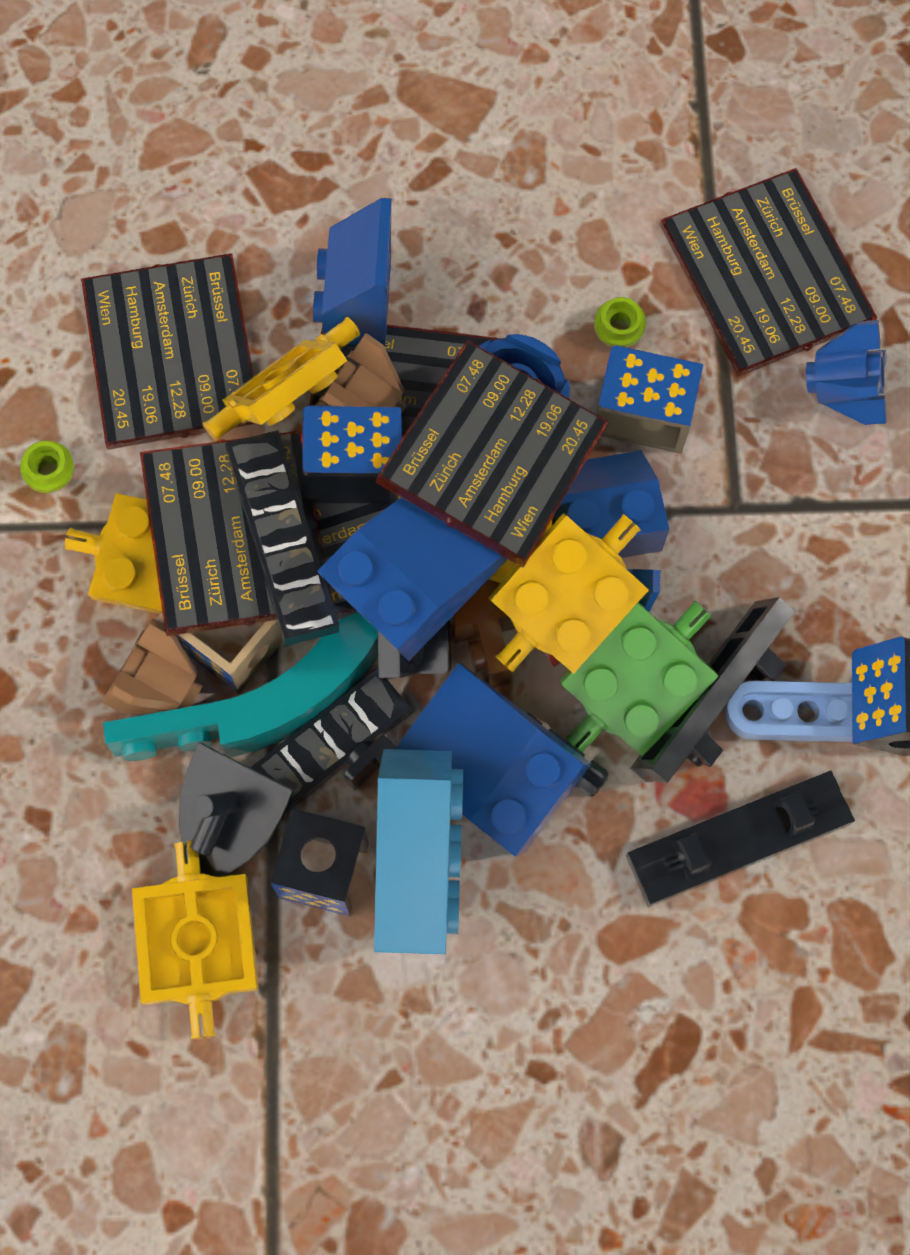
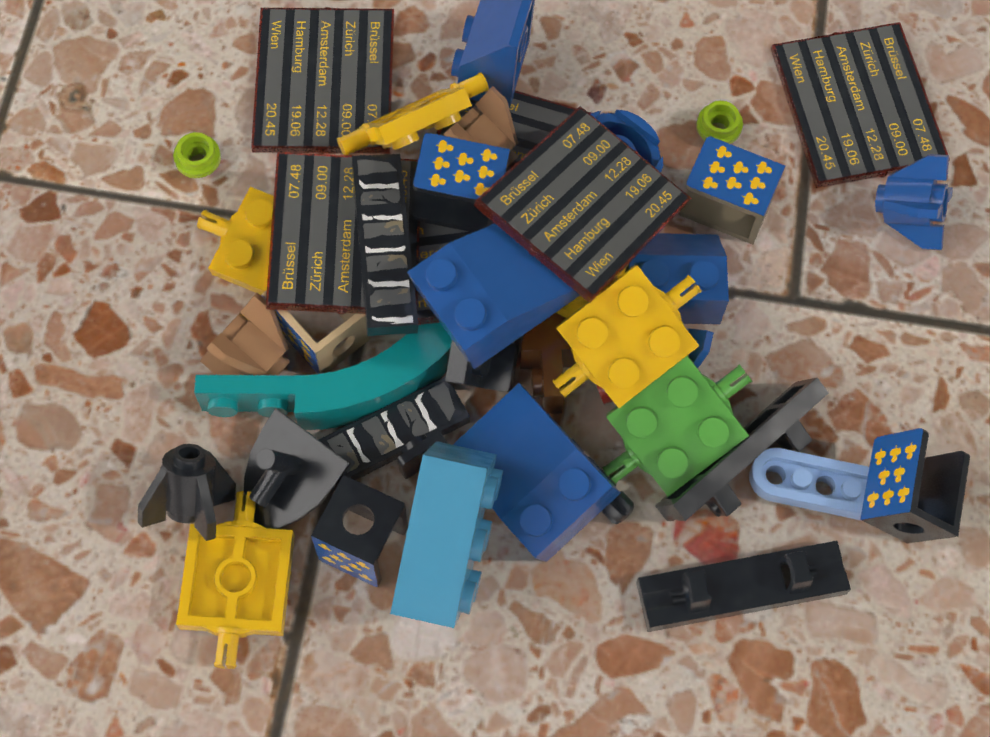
camera: 10 degrees right, 5 degrees down
(121, 854) = (187, 490): none -> black brick

